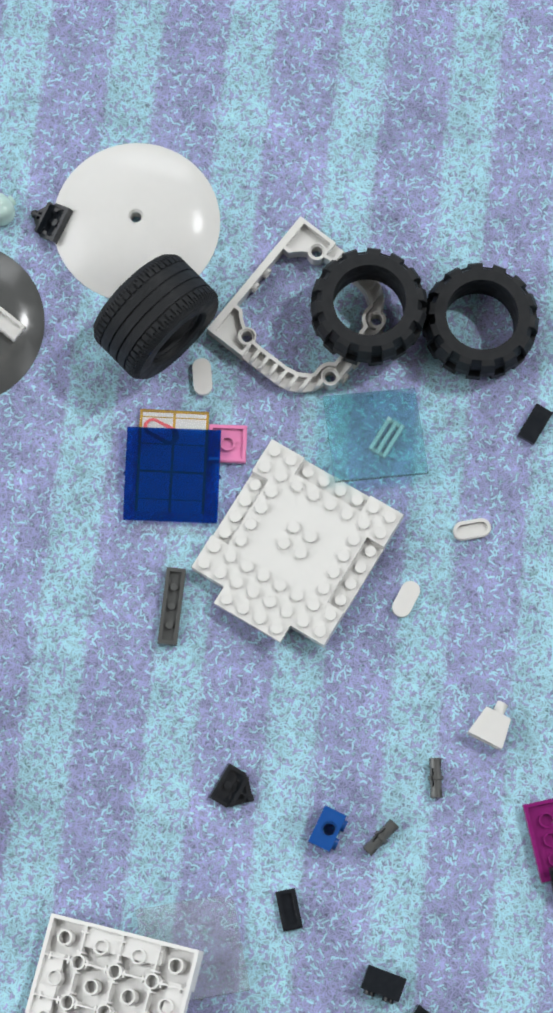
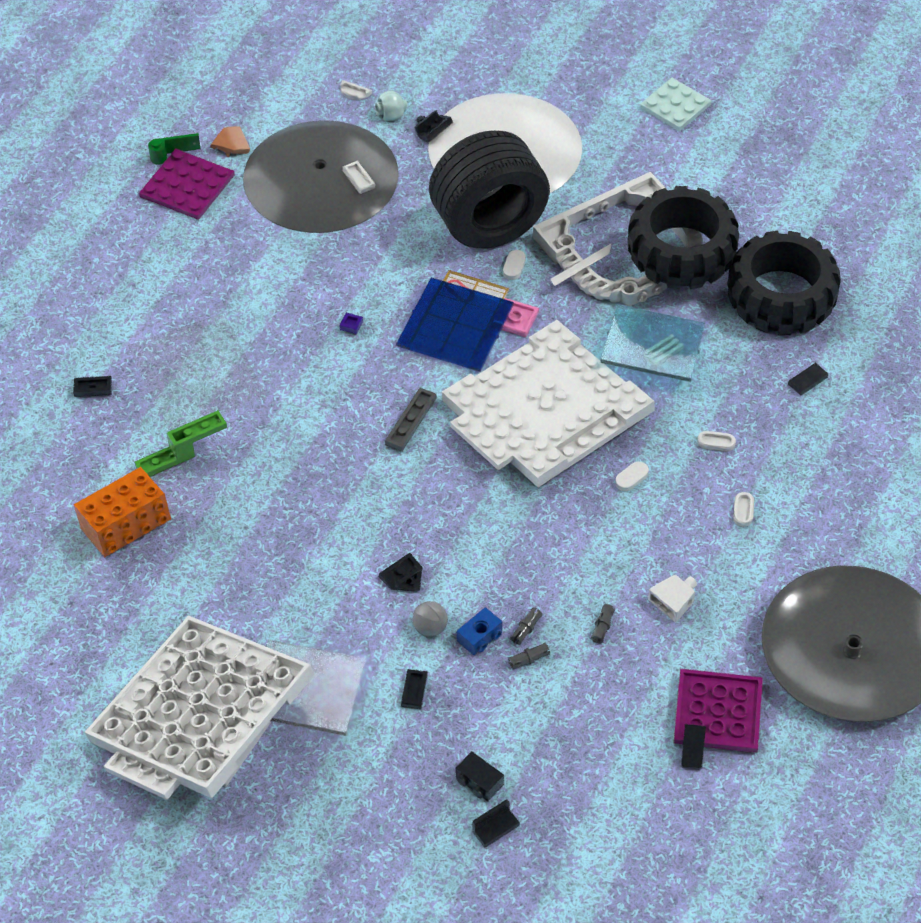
camera: 25 degrees right, 25 degrees down
(67, 508) = (351, 323): none -> dark purple plate
(273, 364) = (581, 265): none -> white sticker
(278, 834) = (430, 618): none -> light grey piece
(292, 106) = (675, 104): none -> light aqua plate
(366, 805) = (526, 626): none -> dark grey pin
(522, 601) = (743, 509): none -> white tile

